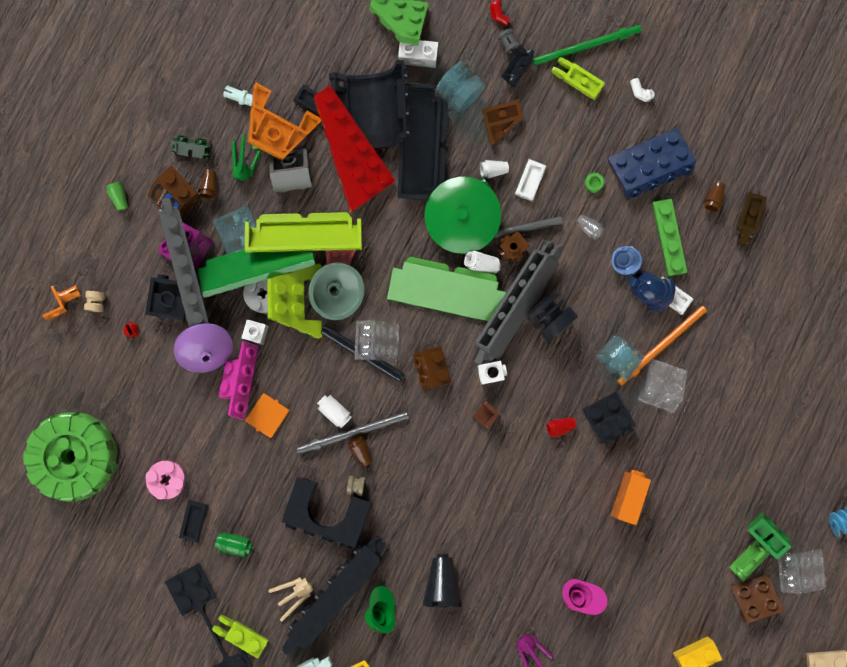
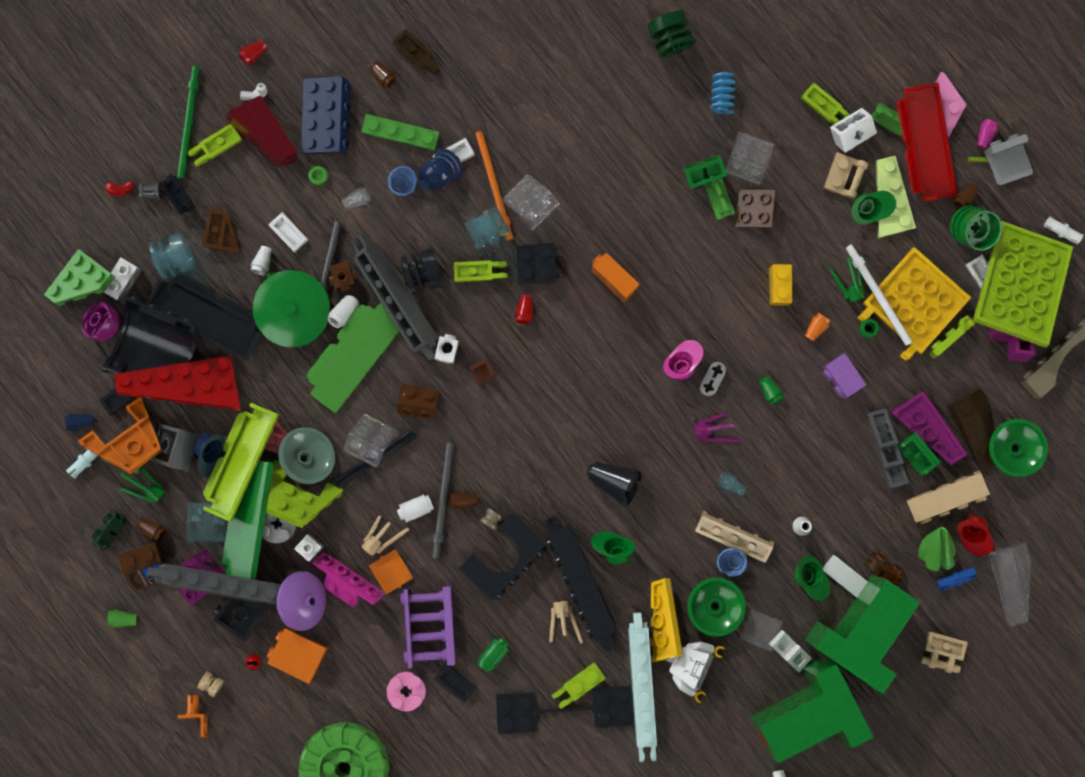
camera: 70 degrees left, 0 degrees up
(154, 366) = (296, 654): none -> orange brick
(232, 493) = (444, 615): none -> medium lavender fence
(275, 76) = (78, 421): none -> dark blue cone
(284, 388) = (372, 543): none -> tan plant
(302, 201) = (208, 450): none -> dark blue piece
(371, 53) = (101, 322): none -> magenta cylinder
(576, 367) = (478, 271): none -> lime hinge
(578, 636) = (716, 381): none -> light grey beam
(612, 113) = (262, 129): none -> dark red slope
(678, 71) = (252, 52): none -> red cone

